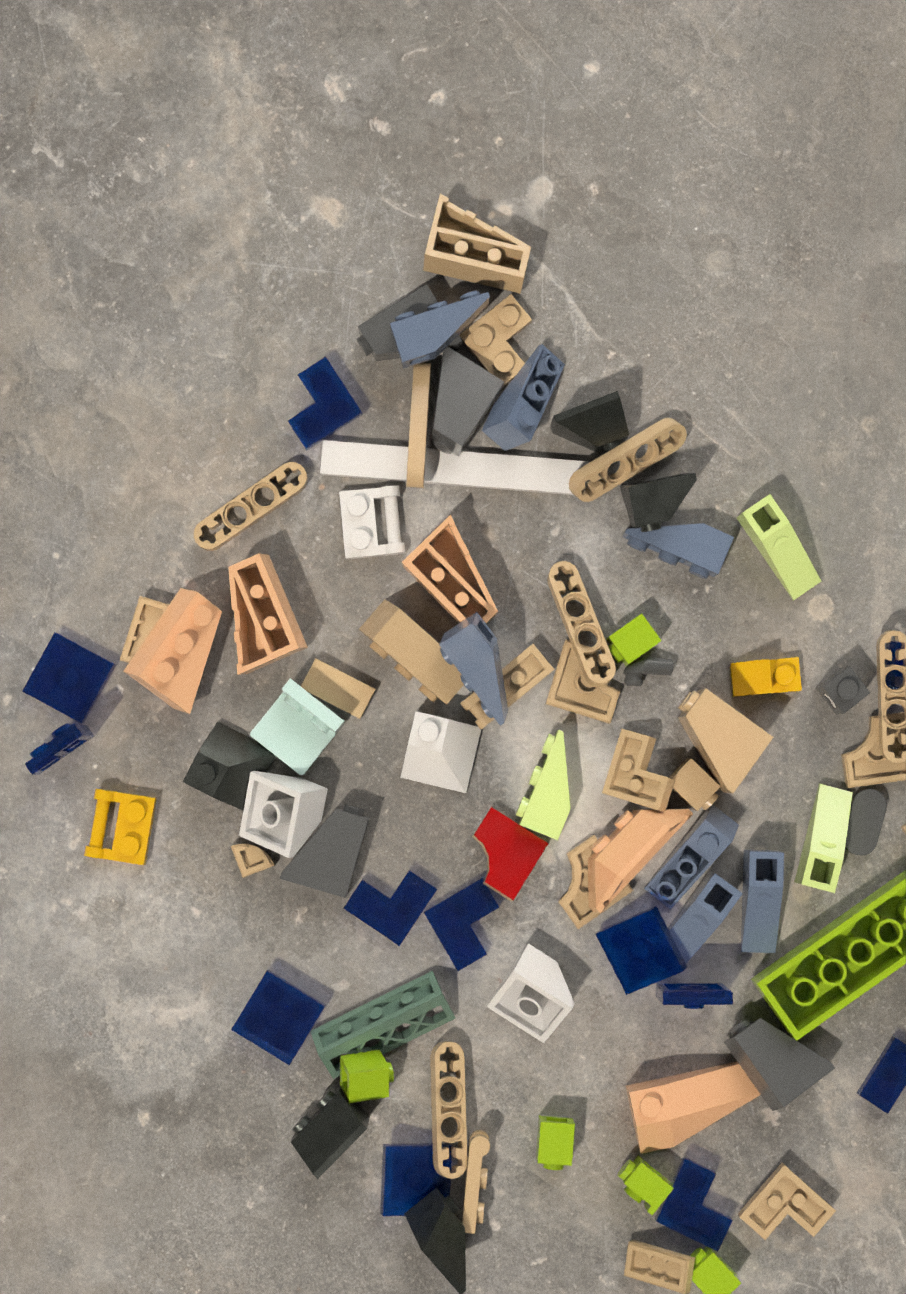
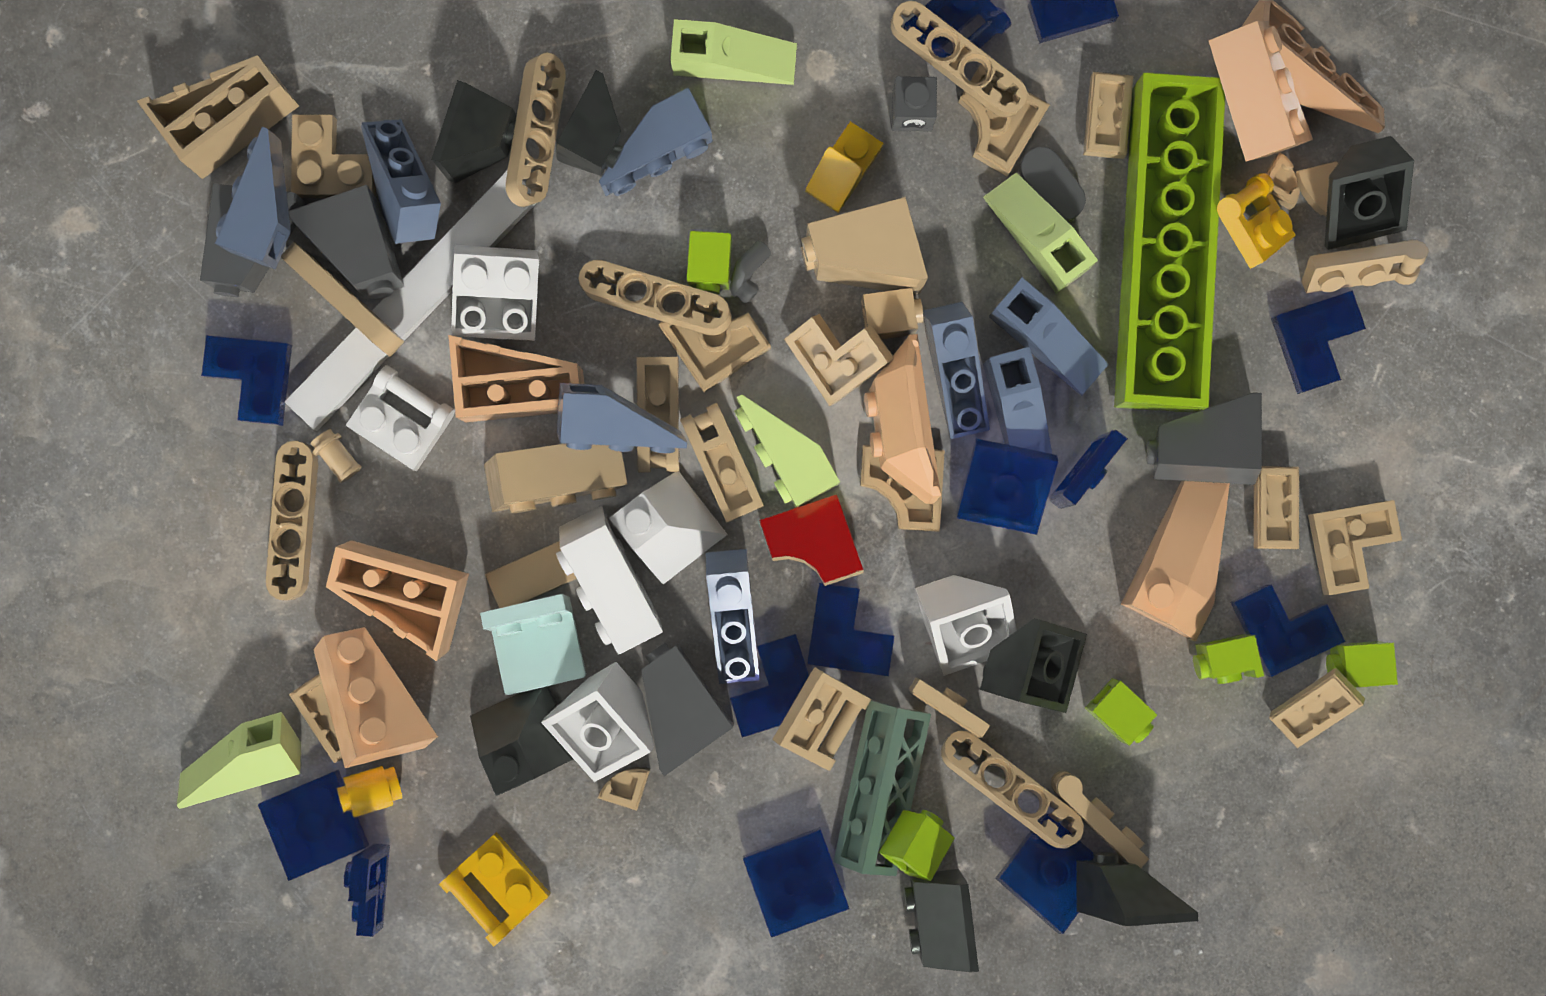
camera: 45 degrees left, 0 degrees up
(74, 600) = (244, 759): none -> yellowish green slope
(120, 697) = (369, 791): none -> yellow brick
(314, 500) = (335, 455): none -> tan pin
(374, 741) = (607, 581): none -> white wedge
(395, 943) = (813, 716): none -> tan plate
(416, 839) = (732, 616): none -> sand blue slope
(471, 1026) = (950, 705): none -> tan plate
(501, 519) = (494, 292): none -> white slope
(508, 754) = (722, 464): none -> tan plate
(541, 1061) = (1035, 665): none -> pearl dark grey slope
(769, 1138) = (1276, 508): none -> tan plate

